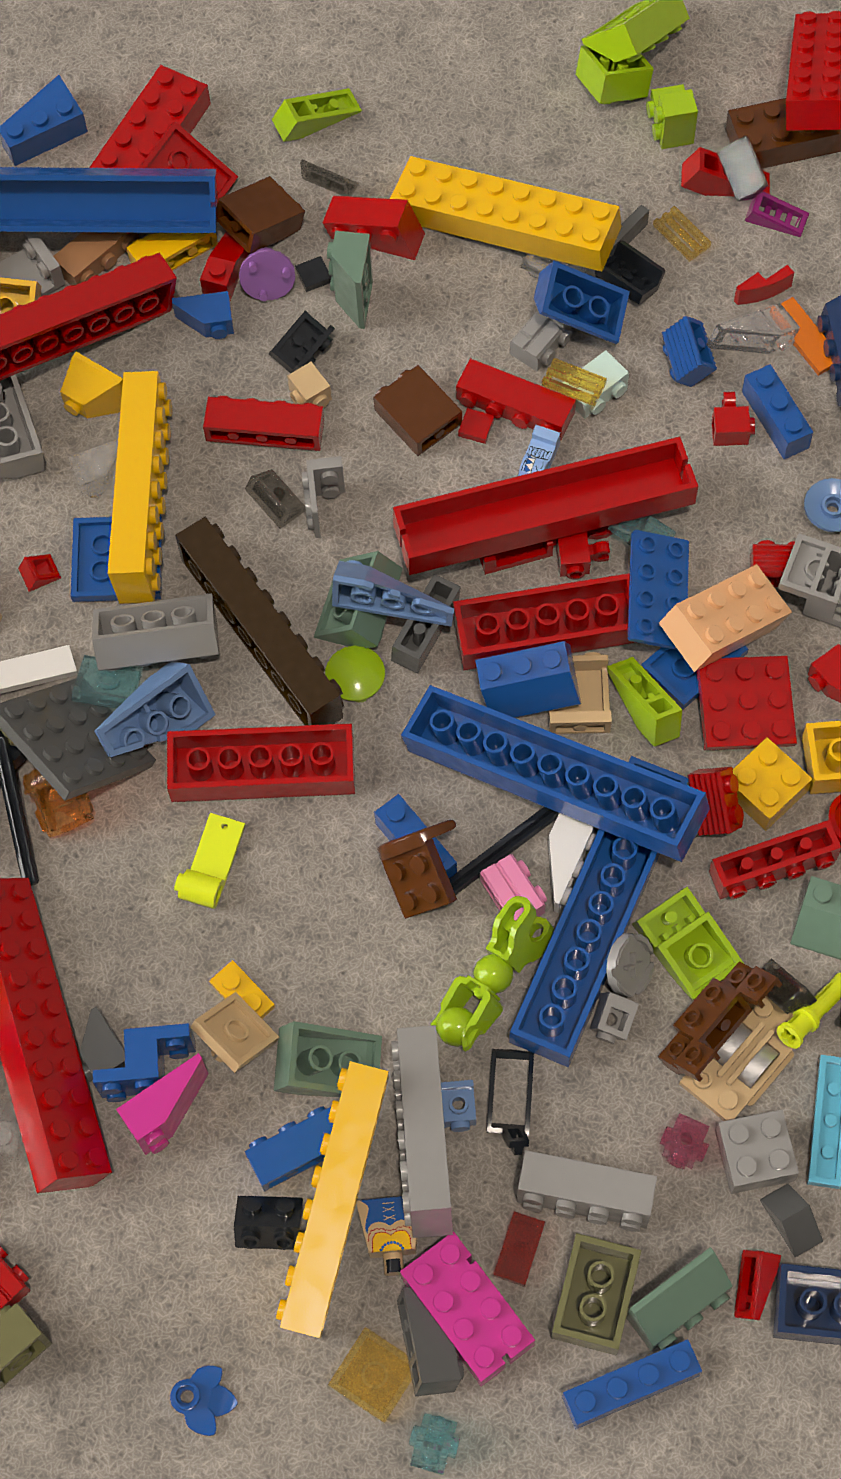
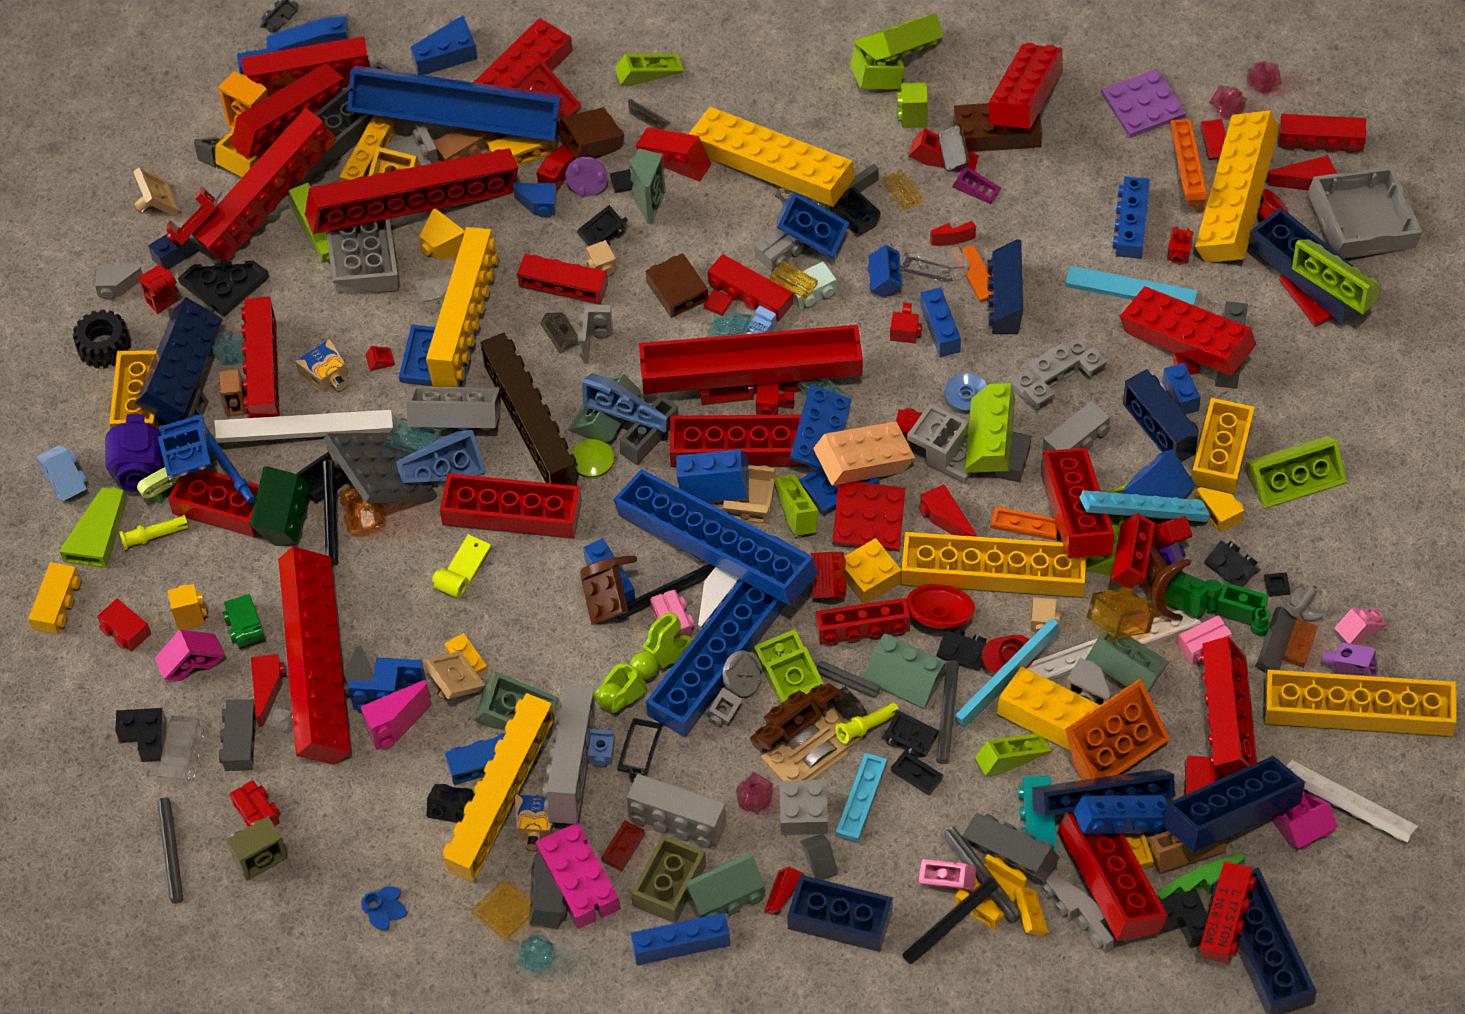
camera: 10 degrees right, 10 degrees down
(502, 459) = (732, 325): none -> clear light blue slope
(771, 945) = (848, 679): none -> dark grey axle

